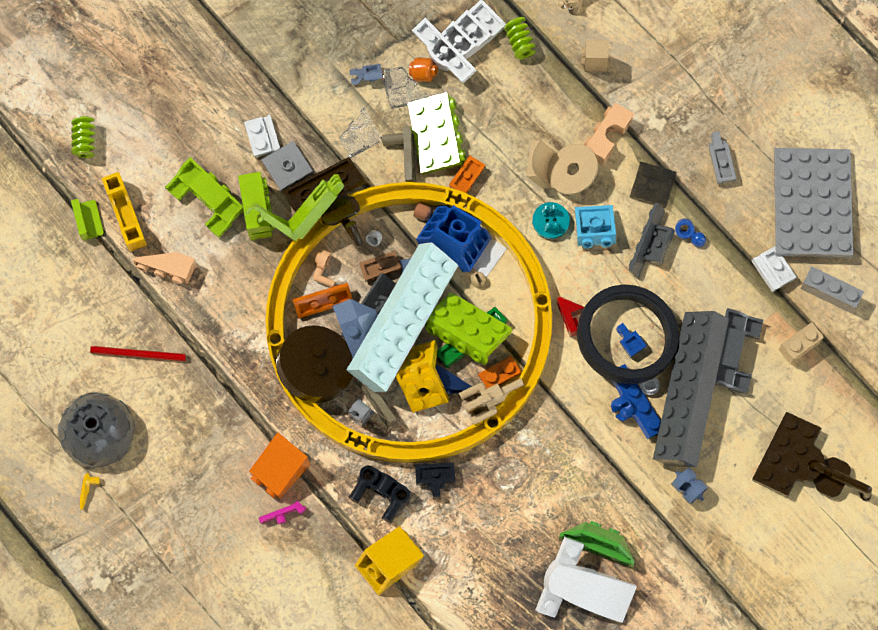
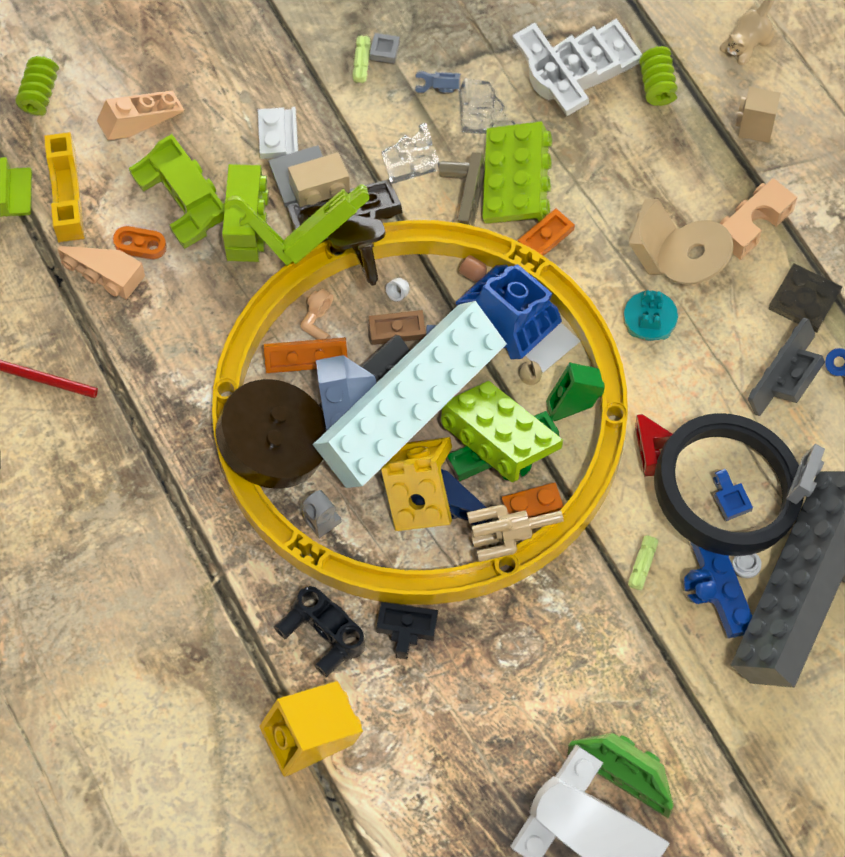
camera: 10 degrees right, 10 degrees down
(160, 143) = (134, 114): none -> light nougat slope
(187, 239) = (141, 242): none -> orange plate
(279, 466) = (186, 562): orange slope -> none
(279, 514) = (170, 630): dark pink piece -> none
(301, 170) = (318, 179): none -> tan brick
(307, 66) = (361, 59): none -> yellowish green axle
(322, 55) = (384, 48): none -> light grey plate
(378, 404) = (349, 508): dark tan piece -> none
(423, 69) = (516, 90): orange head -> none
(511, 289) = (575, 391): none -> green slope
(581, 399) = (643, 562): none -> yellowish green axle
(595, 226) = (712, 334): medium azure plate -> none
(678, 313) = (808, 468): none -> light grey plate
(689, 485) = (779, 717): sand blue wheel -> none

